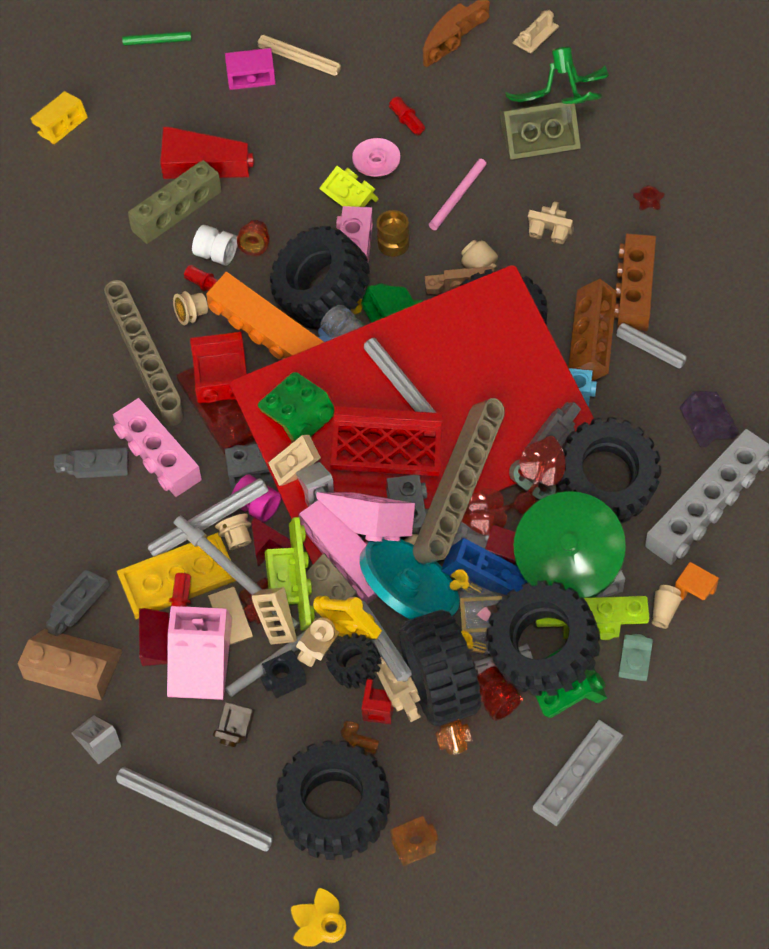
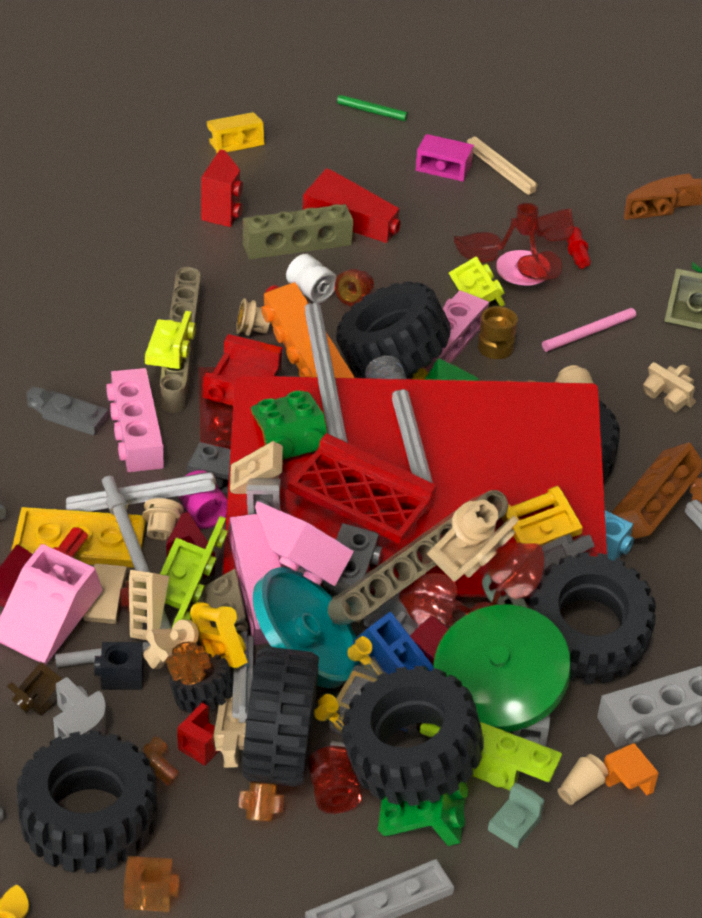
camera: 20 degrees right, 15 degrees down
(91, 189) = (221, 191): none -> red slope
(144, 365) = (170, 342): none -> neon yellow bracket
(285, 732) = (79, 710): none -> light grey brick
(300, 349) = (325, 371): none -> light grey axle
(342, 654) = (188, 663): none -> clear orange gear
(391, 151) = (540, 266): none -> clear red plant
(494, 437) = (475, 521): none -> tan piece
(500, 458) = (461, 558): none -> tan bracket
(536, 409) = (547, 524): none -> yellow plate

